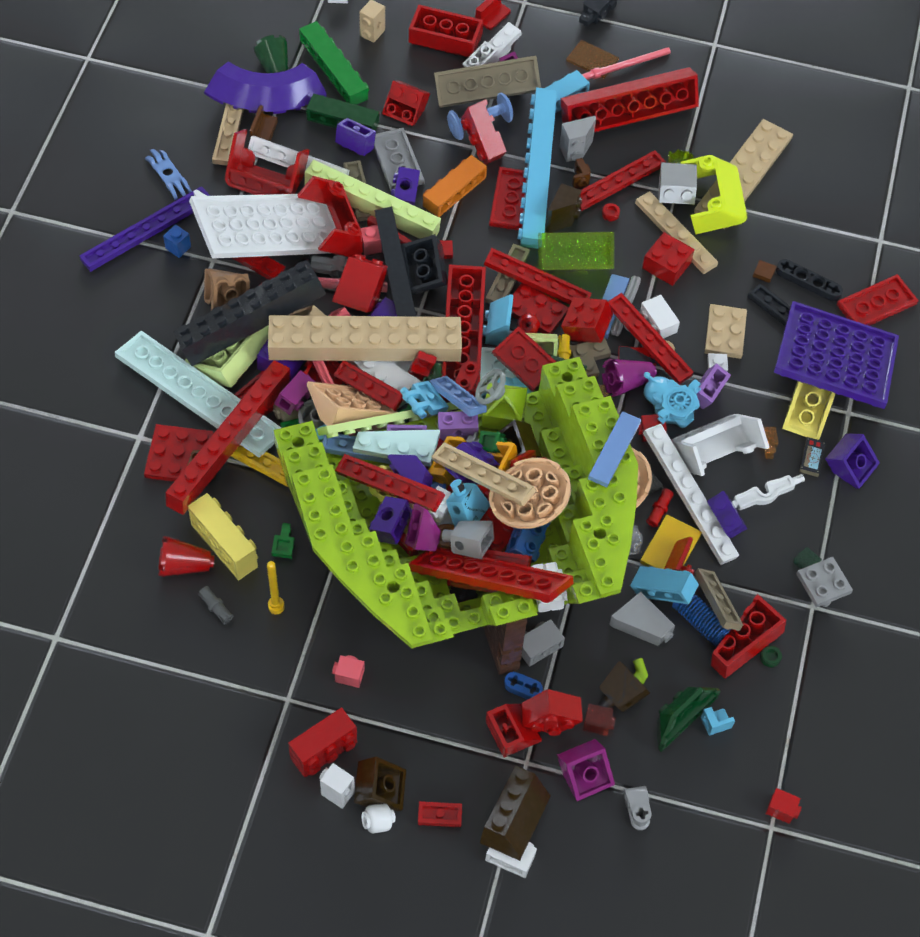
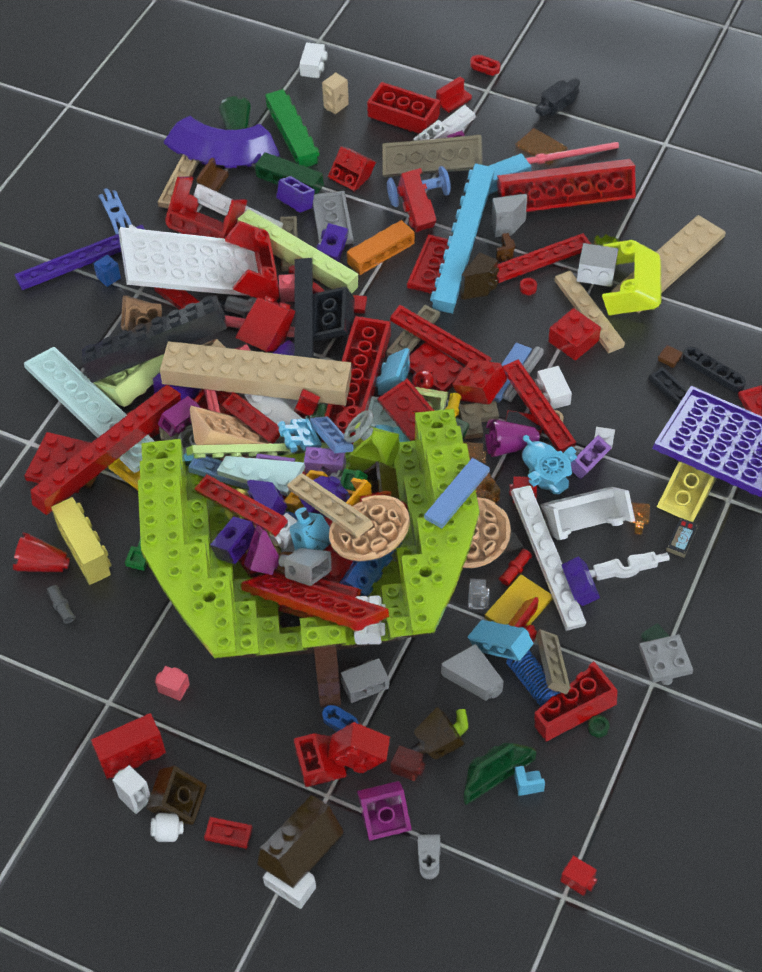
camera: 15 degrees right, 5 degrees down
(275, 603) = (118, 611): yellow piece -> none
(575, 250) = (483, 316): clear neon green brick -> none
(725, 331) = (619, 408): tan plate -> none
(853, 459) = (722, 545): dark purple slope -> none

